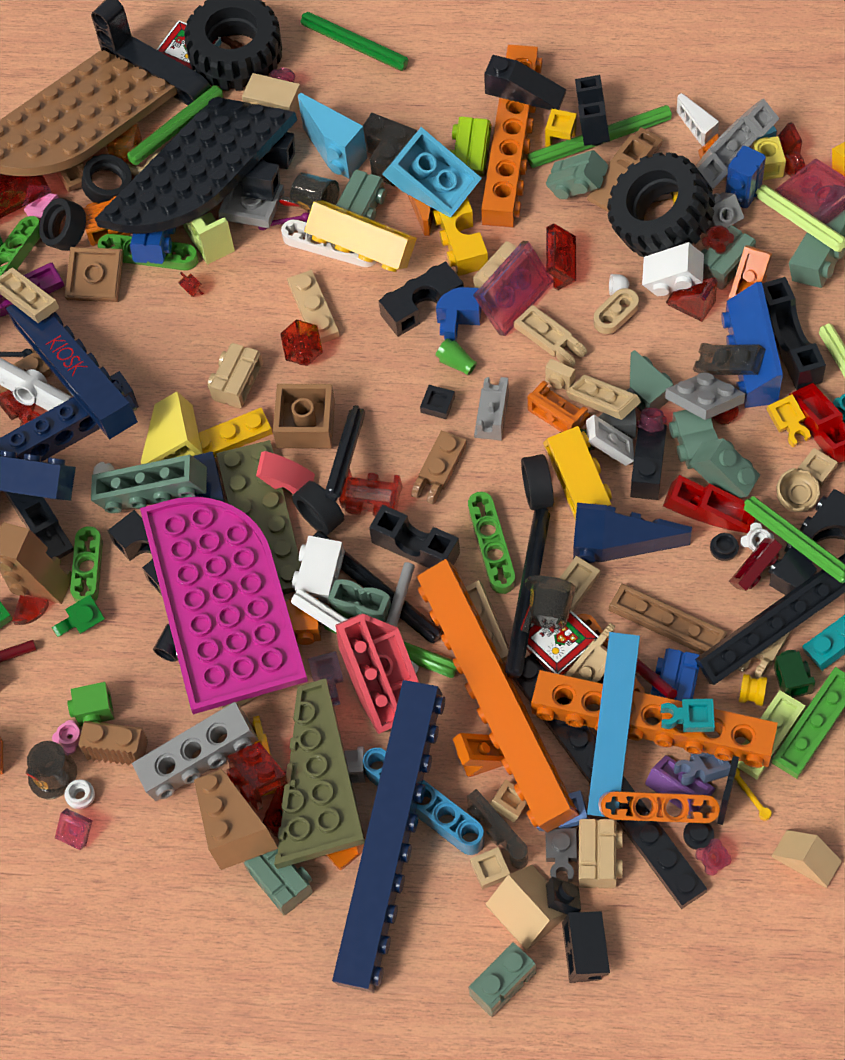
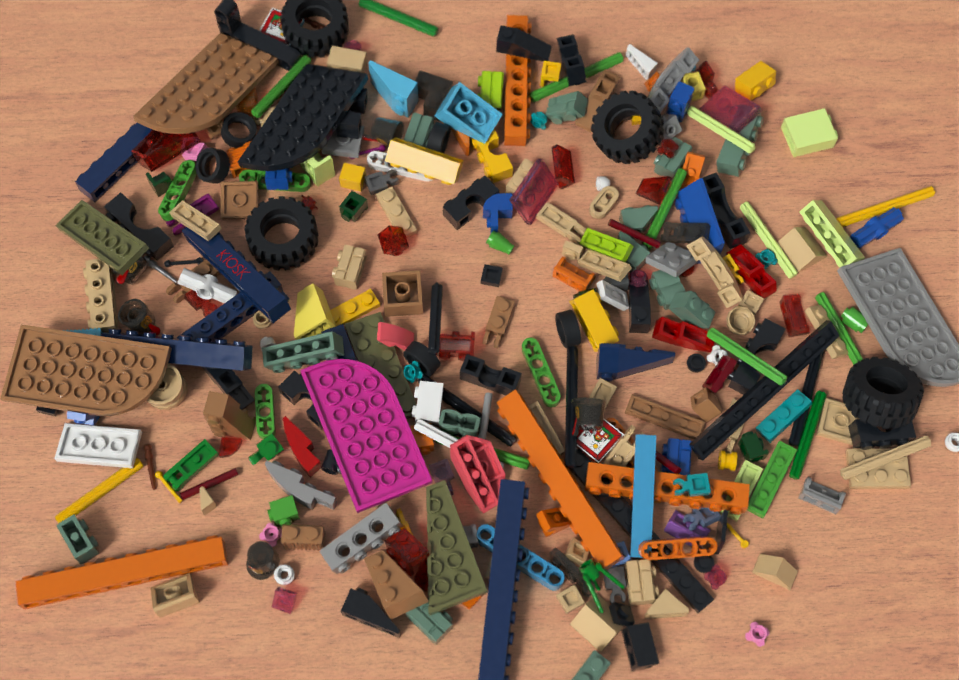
camera: 15 degrees left, 5 degrees up
(97, 434) = (261, 325): none -> tan plate
(123, 681) = (293, 484): none -> light grey slope
(129, 619) = (301, 448): none -> red slope
(136, 295) = (277, 212): none -> black tyre
(184, 853) = (364, 609): none -> black slope
(252, 293) = (353, 202): none -> dark green brick
(257, 253) = (352, 177): none -> yellow panel
(293, 262) = (378, 182): none -> flat silver plate
(304, 526) = (412, 372): none -> teal plate
(386, 205) = (439, 137): none -> black tyre
(492, 410) = (529, 278): light grey hinge -> none
(521, 828) = (591, 573): none -> green plant
(536, 191) = (539, 120): none -> teal plate
(609, 368) = (606, 245): none -> lime plate
(632, 892) = (666, 607): none -> tan slope
(653, 355) = (634, 233): none -> dark red bar
(662, 338) = (638, 218): none -> sand green slope
(673, 269) = (640, 171): white brick -> none
(704, 325) = (666, 205): none -> bright green axle
(730, 607) = (706, 405): none -> medium nougat panel
(771, 415) = (717, 269): none -> tan slope
(776, 946) = (751, 636): none -> bright pink plate

